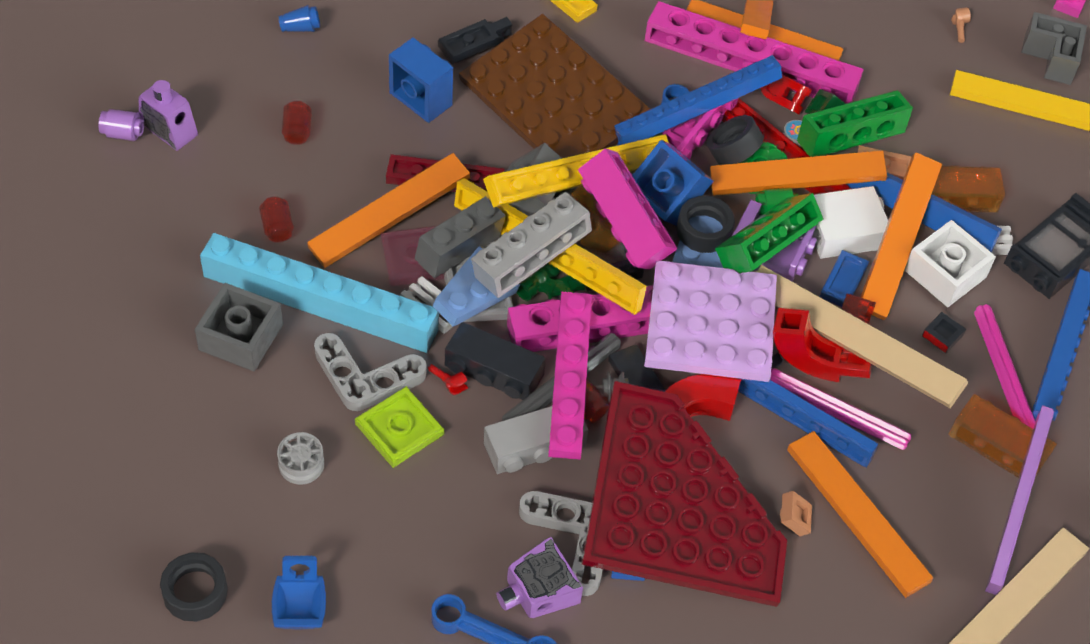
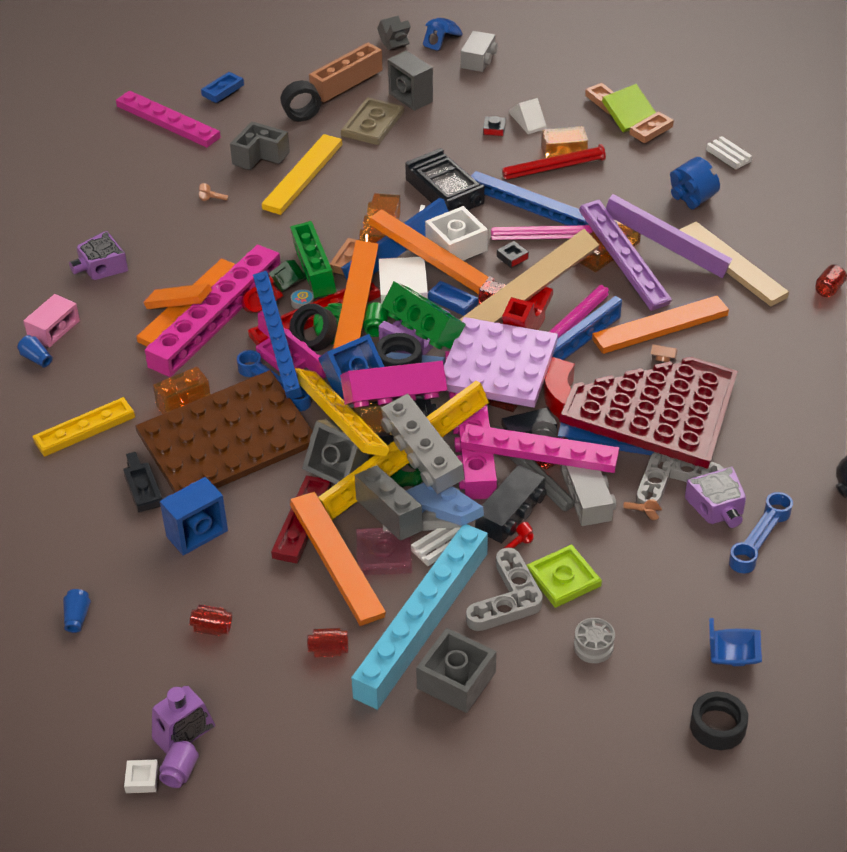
camera: 75 degrees left, 10 degrees down
(107, 99) = (141, 776): none -> white plate
(513, 505) = (648, 507): none -> nougat hand
(608, 46) = (181, 389): none -> clear orange brick
(967, 452) = (625, 255): none -> medium lavender tile

